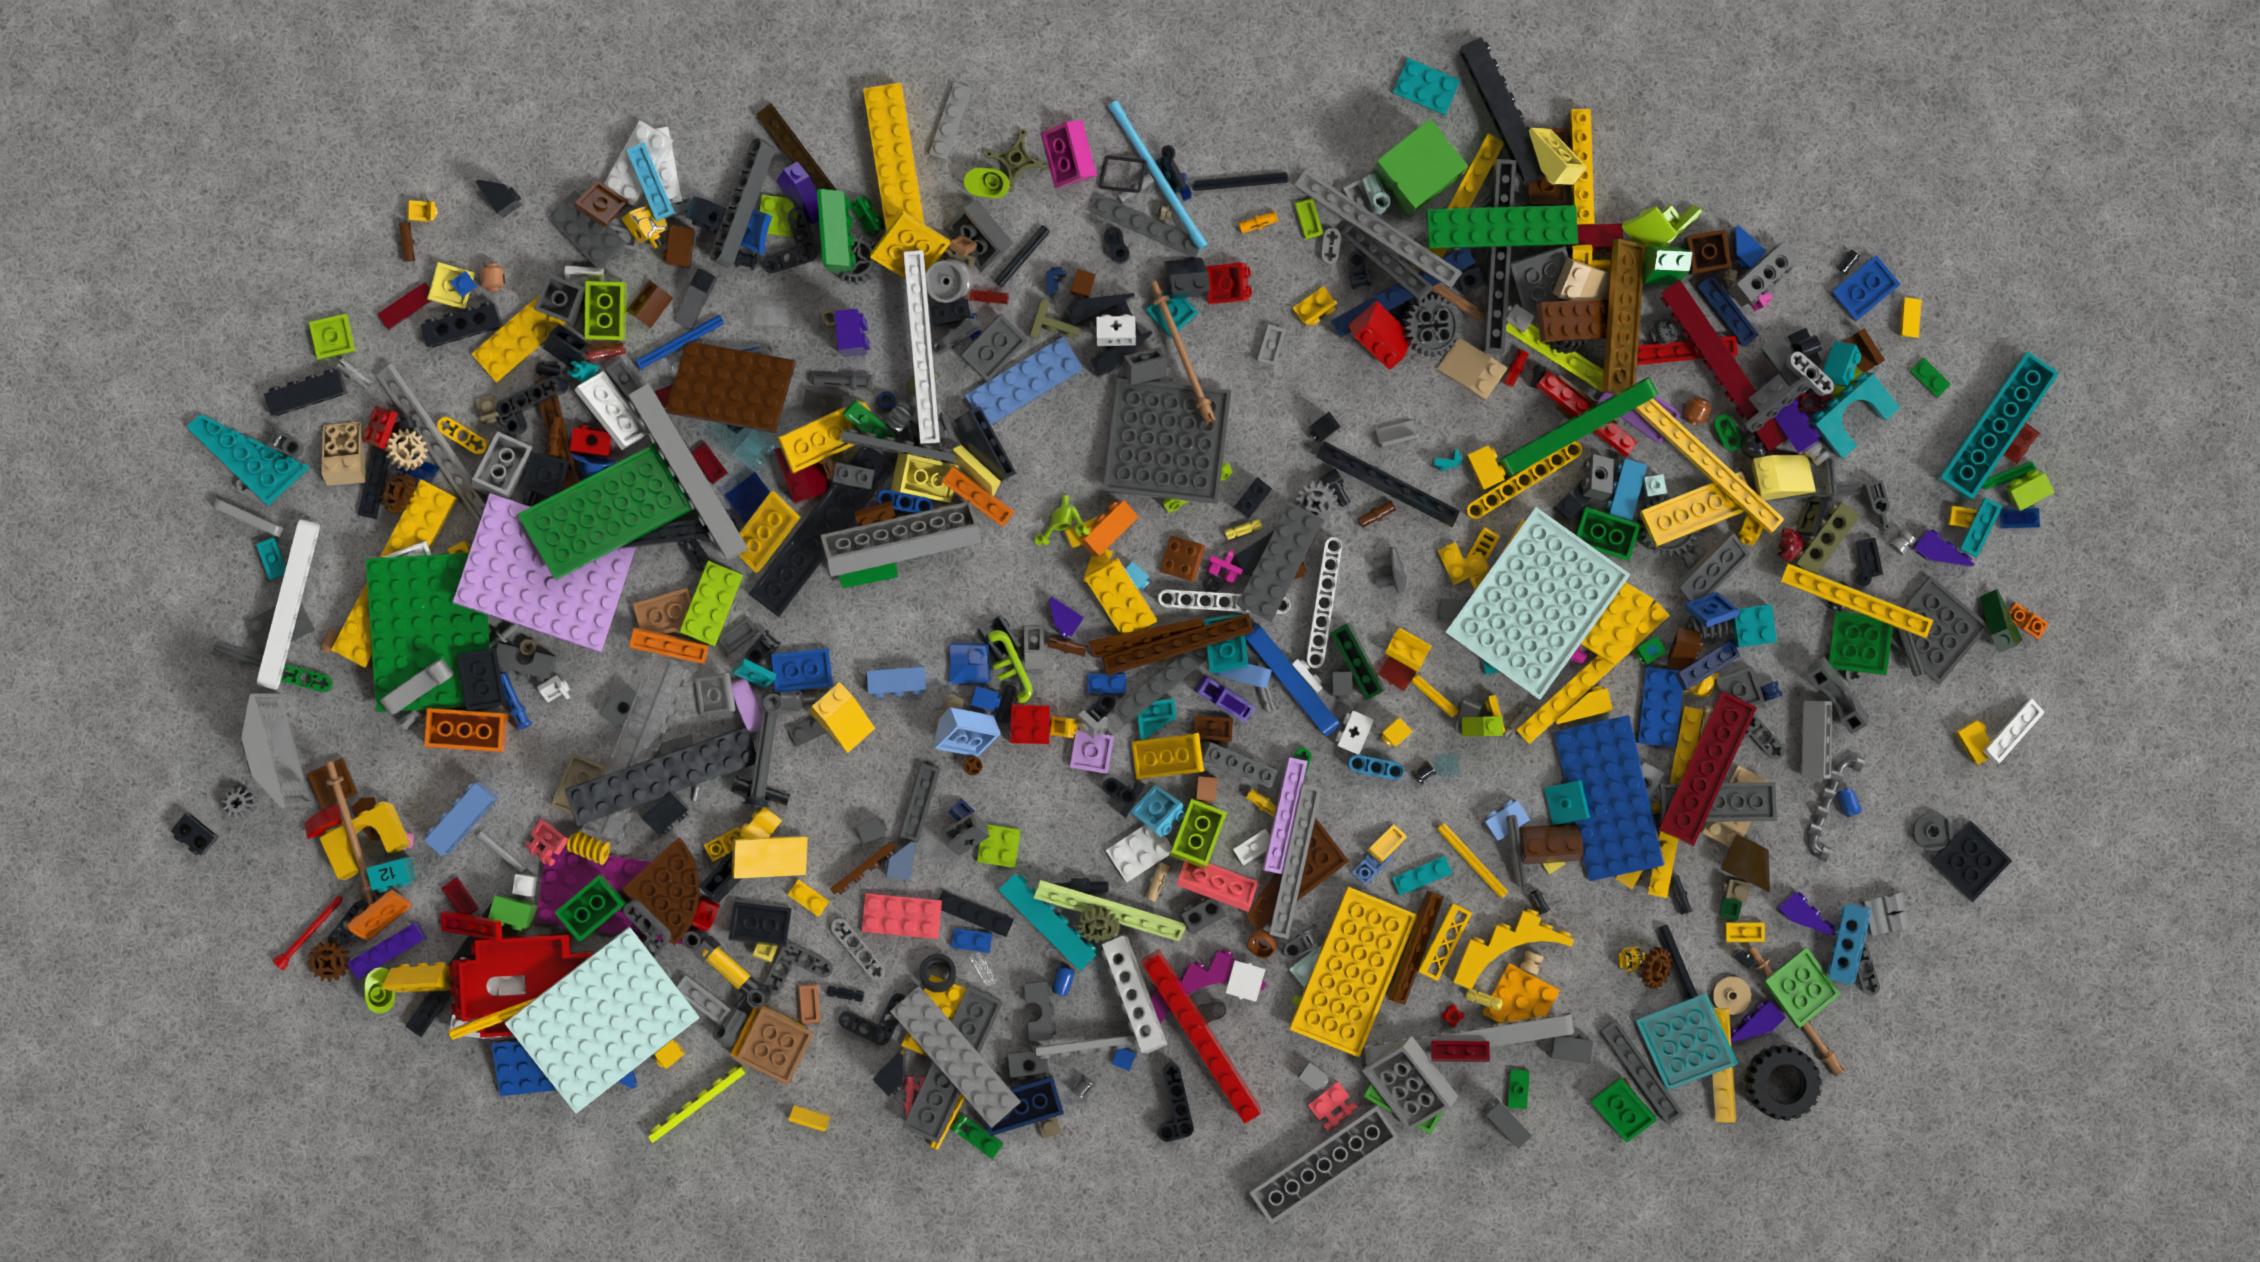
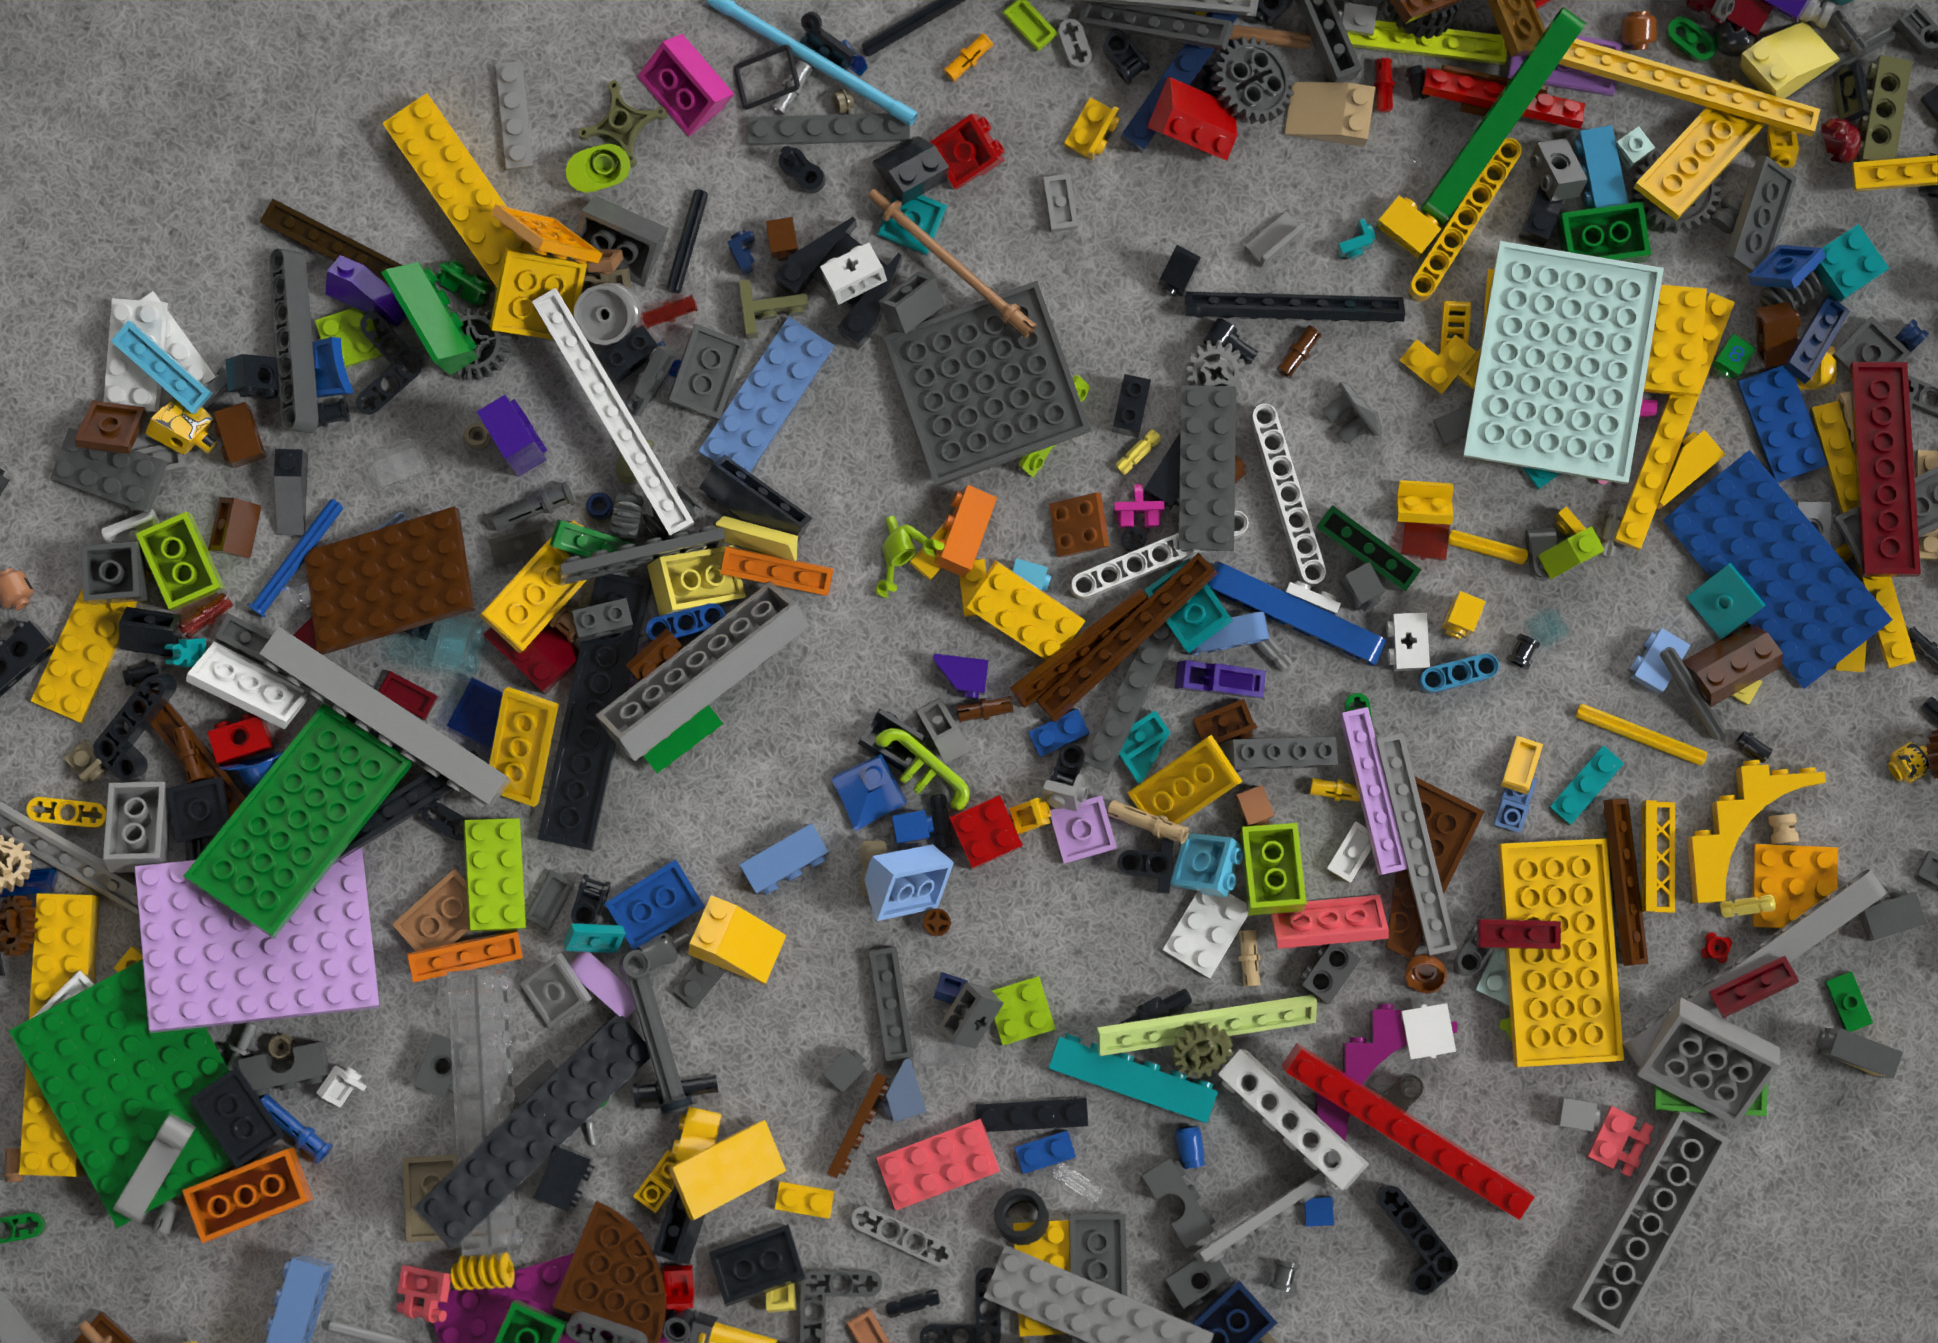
camera: 20 degrees left, 5 degrees down
(933, 213) = (546, 235): none -> light orange plate
(1140, 772) = (1159, 826): none -> tan pin
(1330, 948) = (1518, 934): none -> dark red plate

